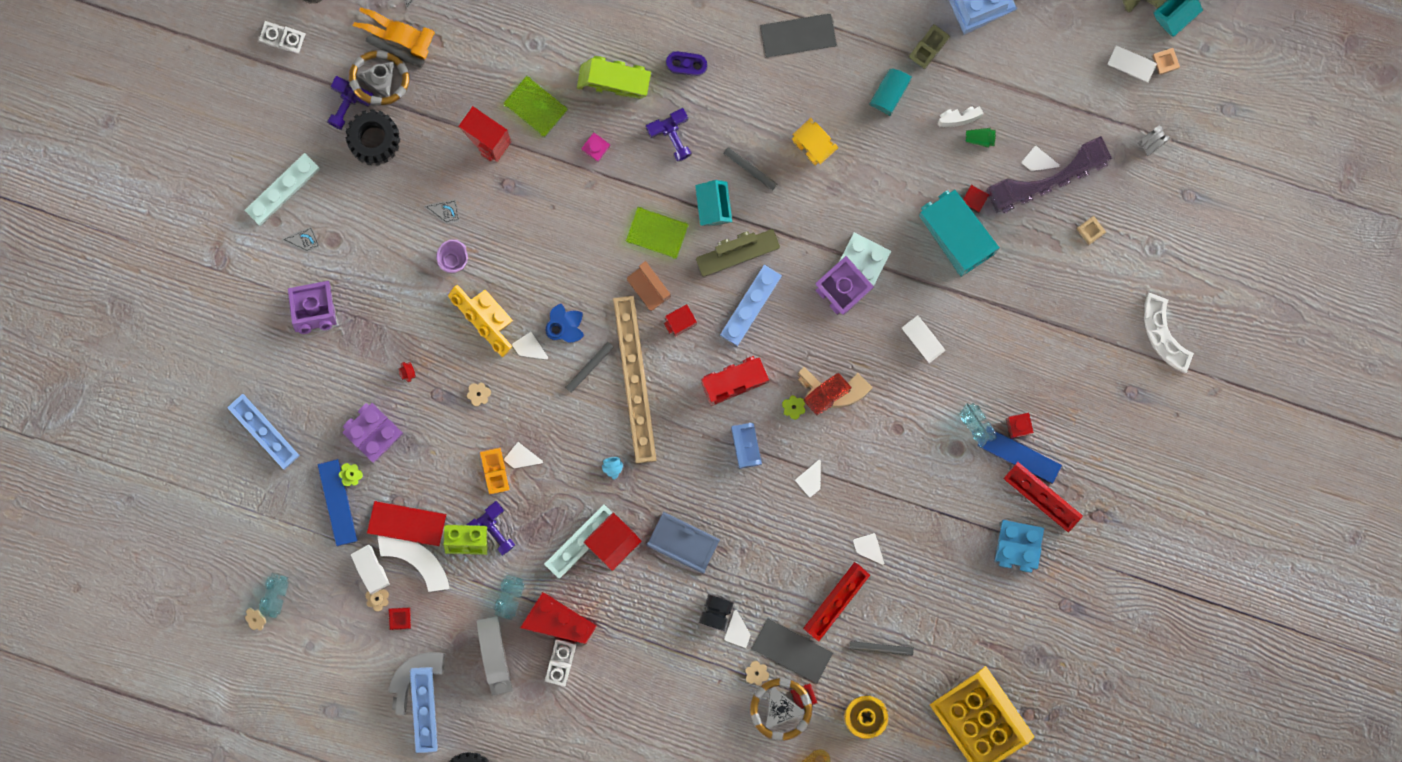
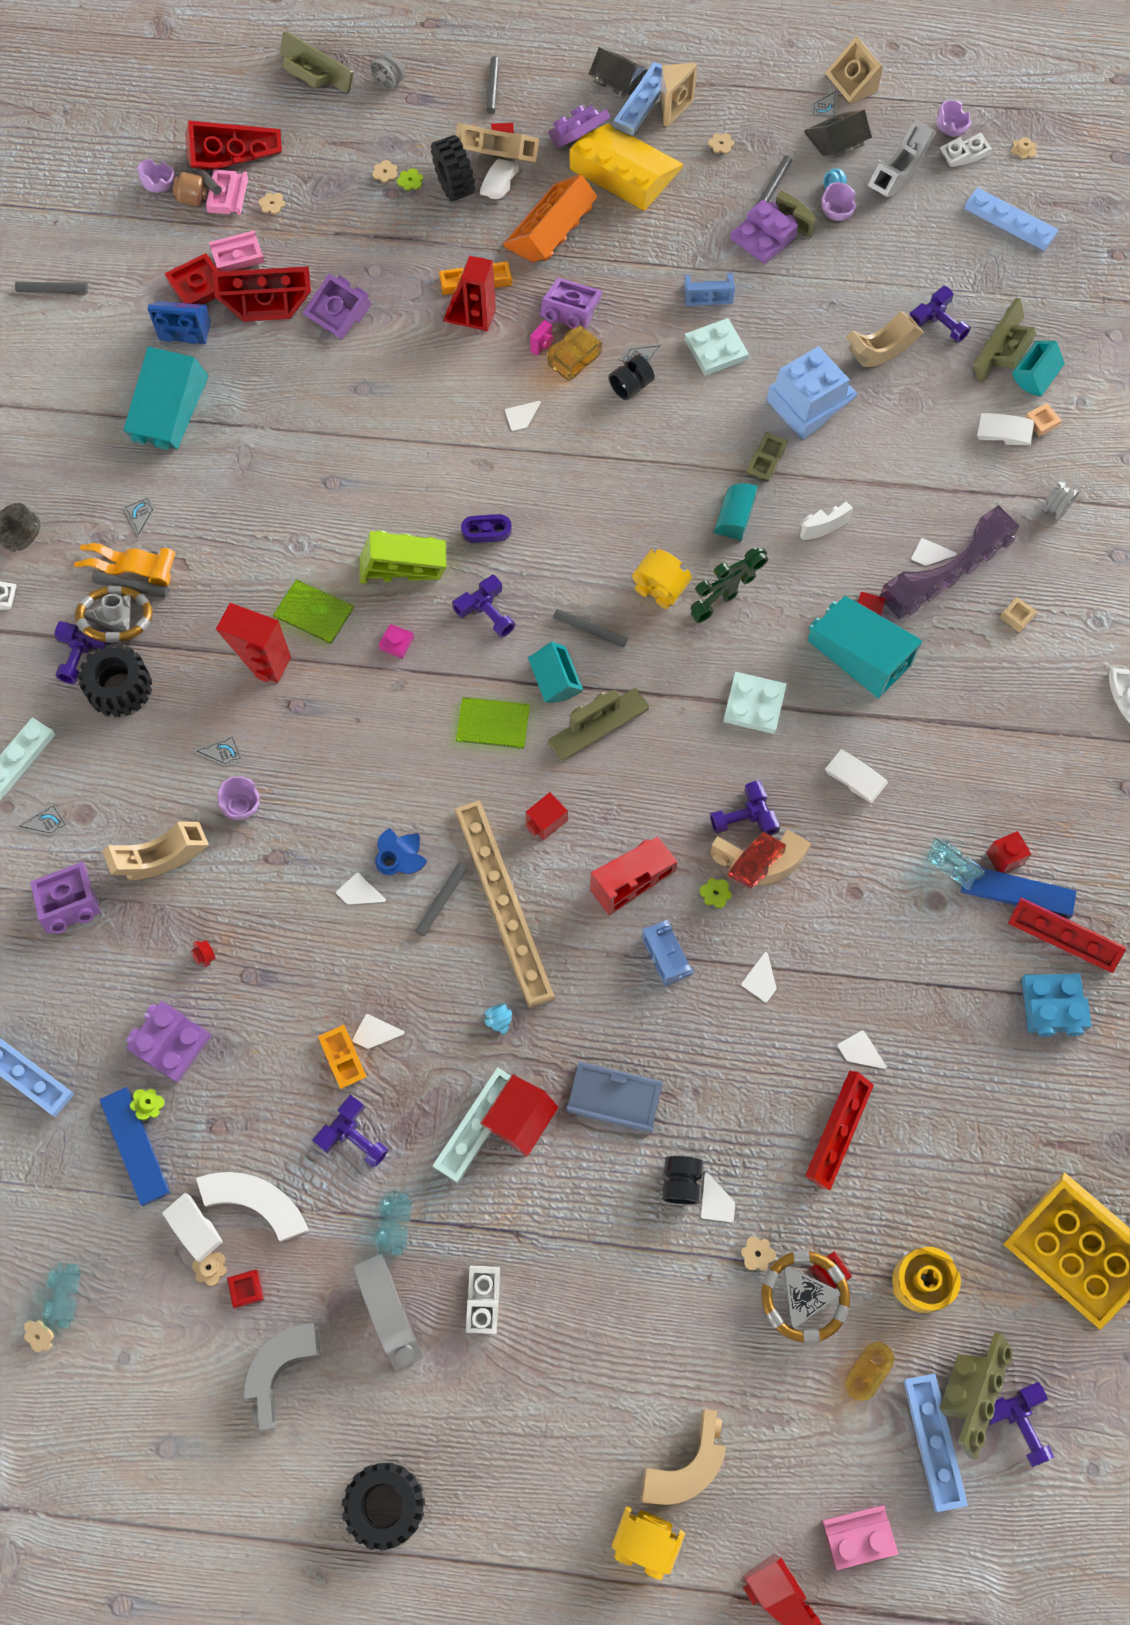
camera: 10 degrees left, 15 degrees down
(385, 288) = (158, 856): none -> tan arch
(406, 523) = (234, 1153): red sticker -> none
(424, 709) = (300, 1414): light blue plate -> none
(465, 539) = (318, 1156): lime bracket -> none
(474, 389) = (298, 957): tan plant -> none
(485, 316) = (294, 864): yellow bracket -> none
(557, 620) = (467, 1240): red wedge -> none
(648, 286) = (497, 785): nougat panel -> none
(750, 305) = (629, 783): light blue plate -> none
(792, 651) = (797, 1212): dark grey sticker -> none
(798, 35) = (611, 477): dark grey sticker -> none
(840, 350) = (755, 810): none -> dark purple bar
(843, 286) = (740, 732): medium lavender plate -> none
(860, 159) = (728, 582): none -> dark green plant
(882, 648) = (916, 1180): dark grey bar -> none
(982, 137) = (857, 538): green cone -> none

